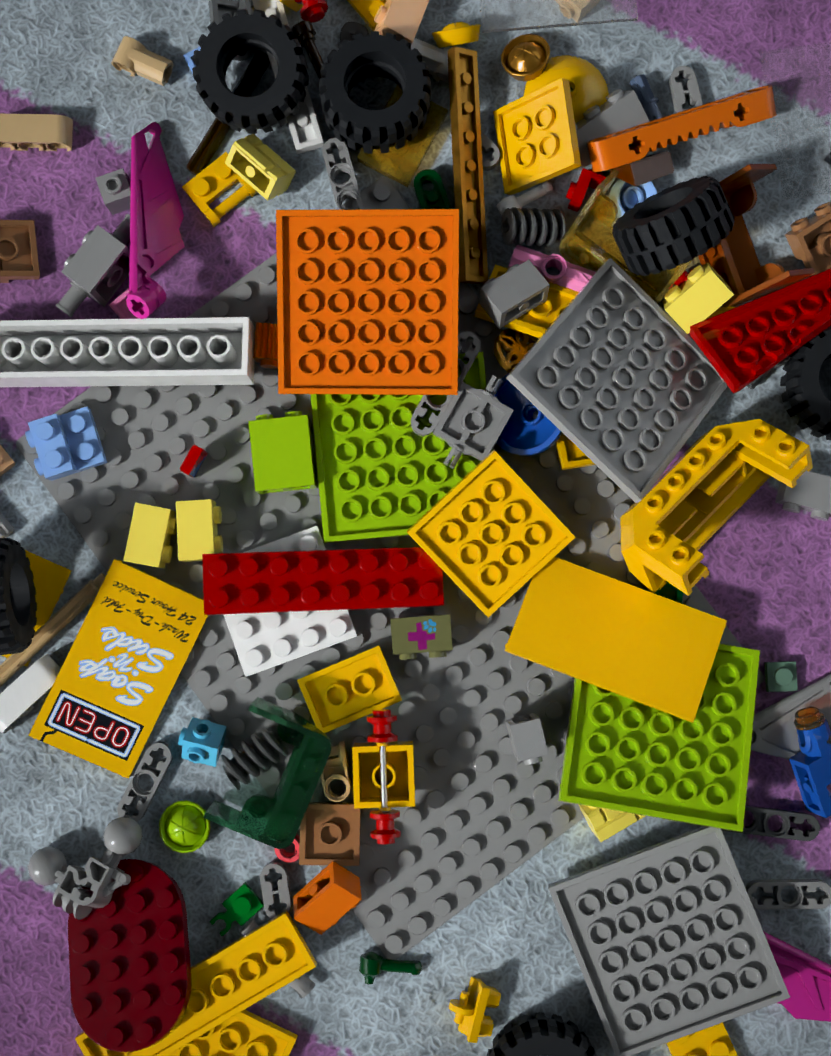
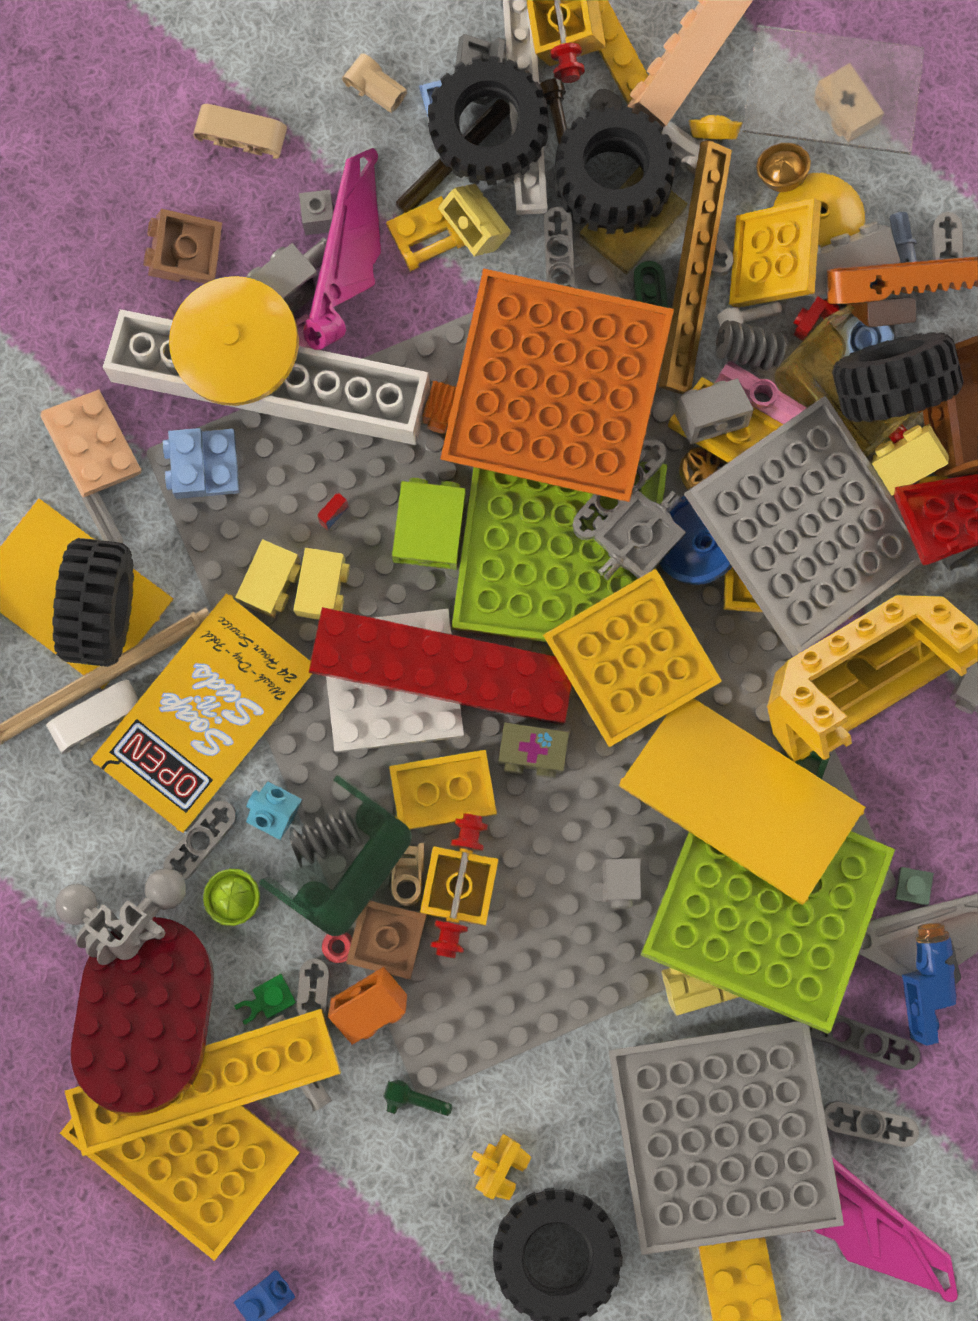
camera: 15 degrees right, 5 degrees down
(65, 327) = (234, 341): none -> yellow dish

